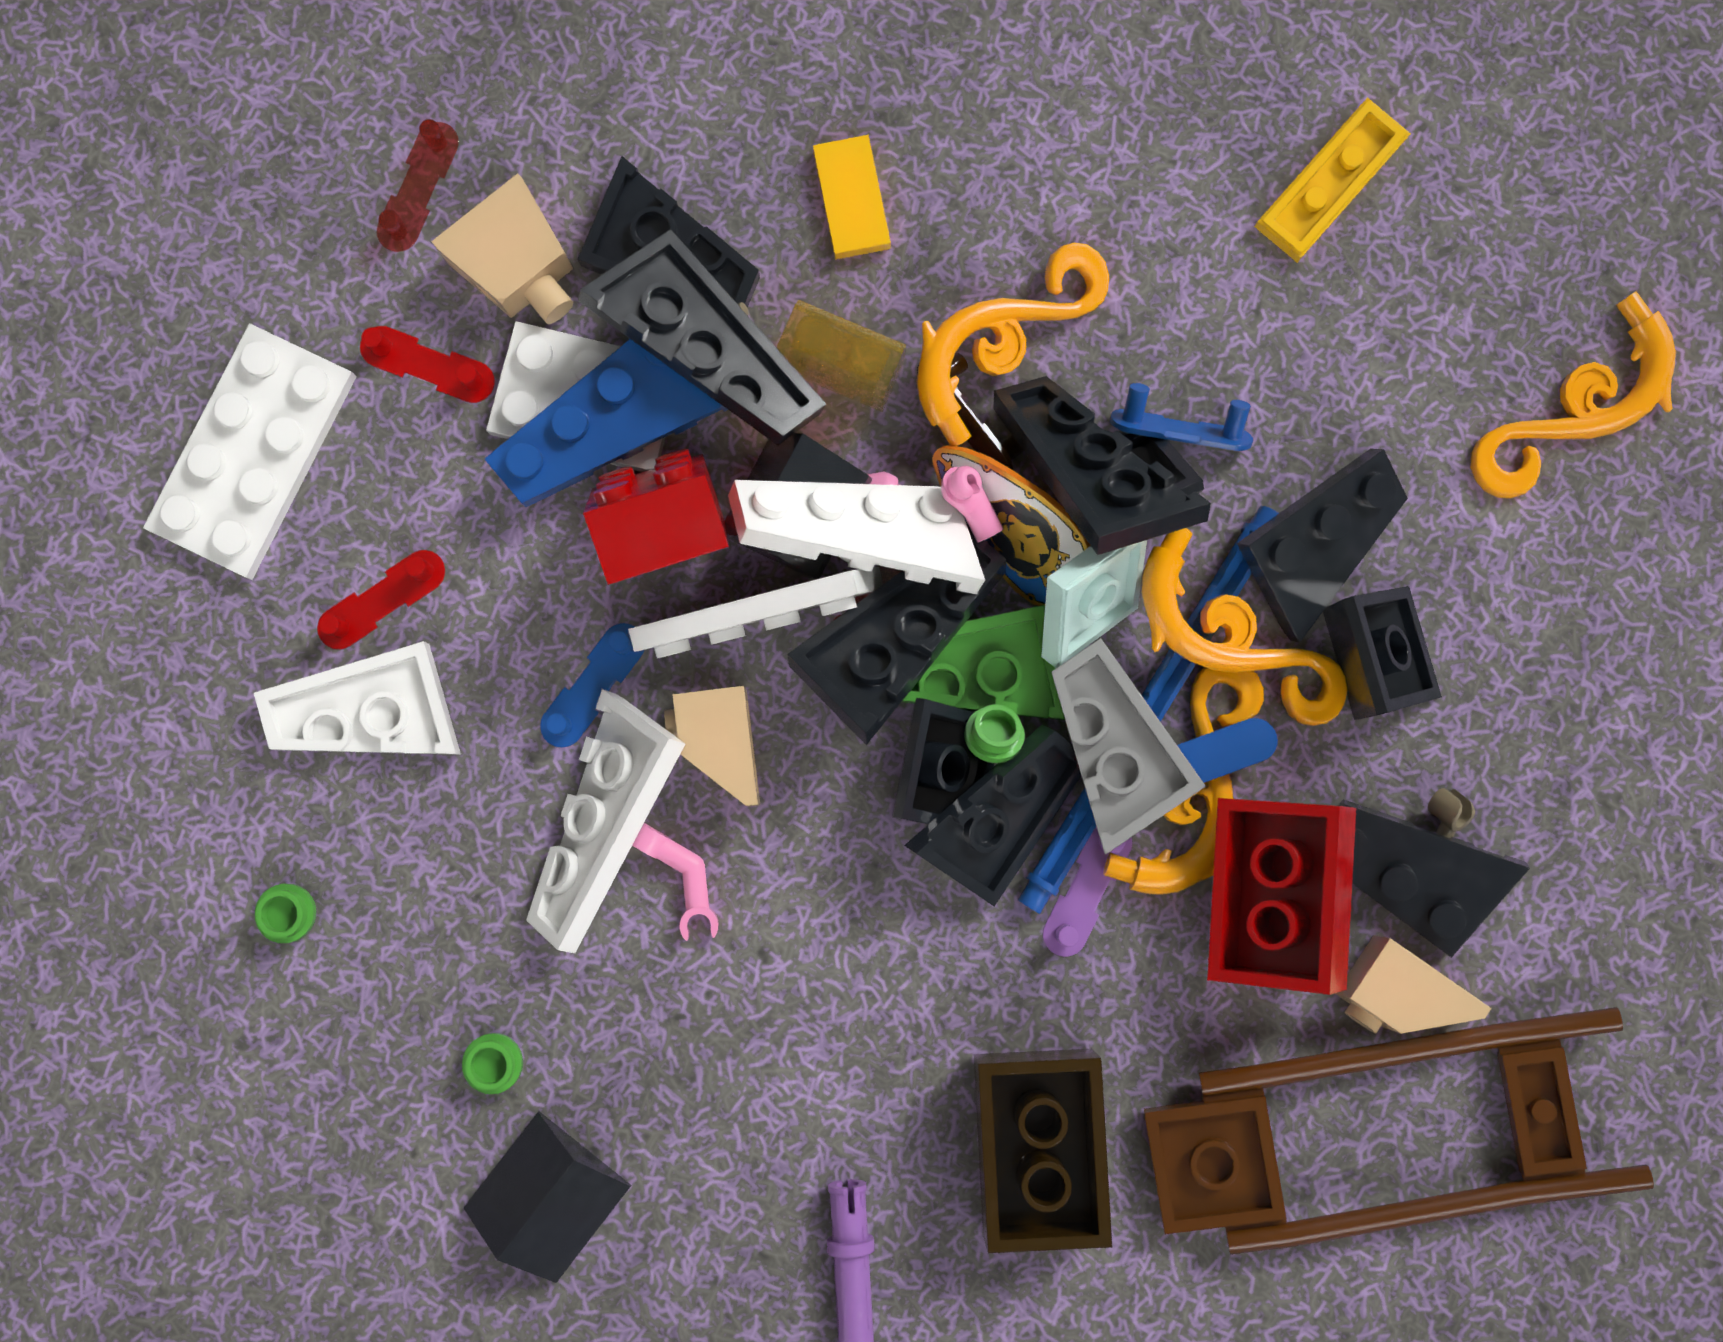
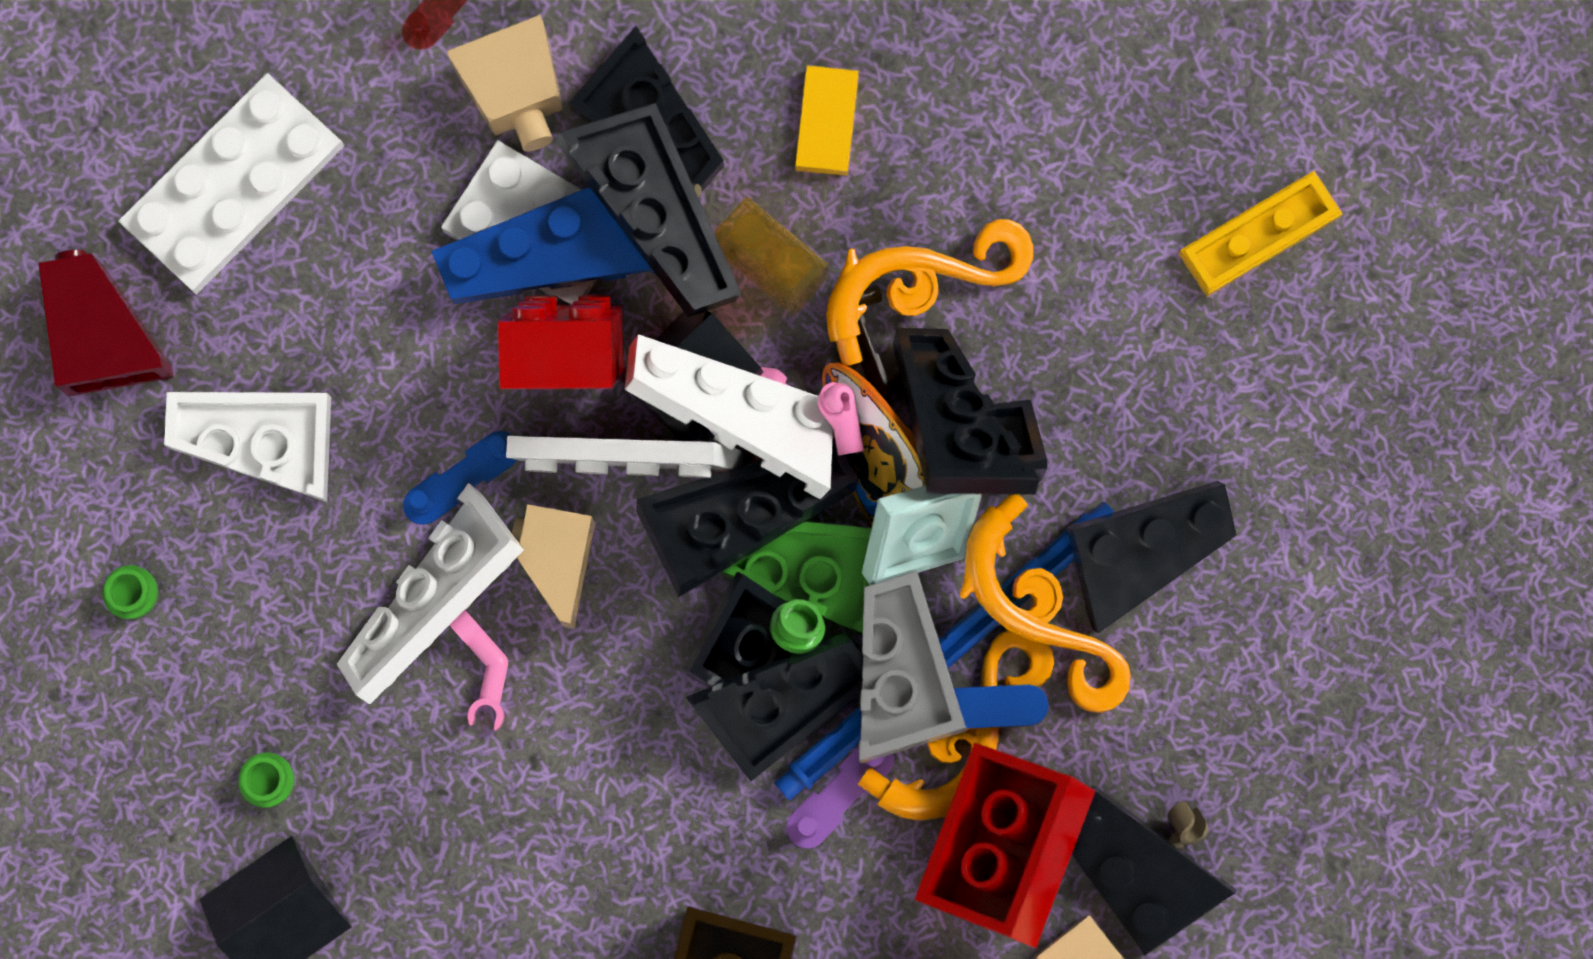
camera: 20 degrees right, 5 degrees down
(154, 649) = (94, 329): none -> dark red slope
(358, 615) = (327, 339): red piece -> none
(401, 354) = (427, 169): red piece -> none
(1227, 436) = (1091, 431): blue piece -> none
(1381, 652) = (1171, 663): black slope -> none
(1657, 363) = (1492, 504): light orange plant -> none

